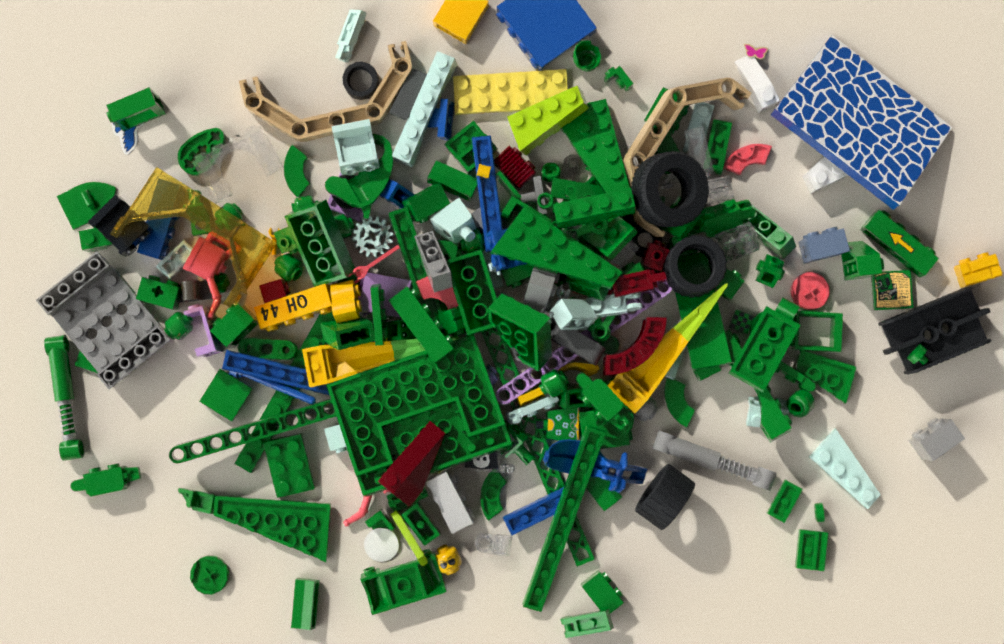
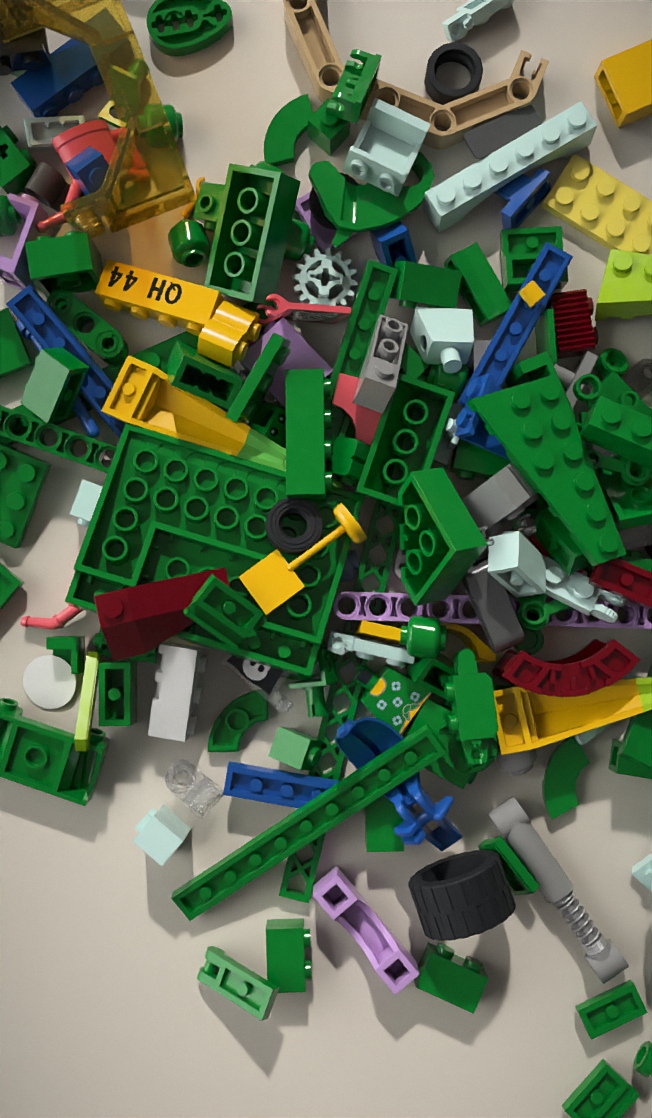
camera: 30 degrees right, 0 degrees up
(210, 164) = (187, 38): clear arch -> none
(219, 272) = (88, 170): none -> blue slope
(274, 290) = (150, 257): dark red brick -> none
(276, 391) = (54, 384): none -> brick
(316, 155) = (327, 129): none -> green brick
(317, 129) = (354, 86): none -> green hinge
(446, 443) = (223, 612): none -> green plate
(448, 559) = (119, 764): yellow head -> none
(458, 383) = (299, 507): none -> black tyre
(459, 409) = (273, 579): none -> yellow piece
(494, 577) = (161, 833): none -> light aqua brick
(531, 486) = (296, 748): none -> brick
(631, 549) = (378, 942): none -> lavender arch
(688, 468) = (517, 875): none -> green tile
(692, 543) = (451, 976): none -> green brick

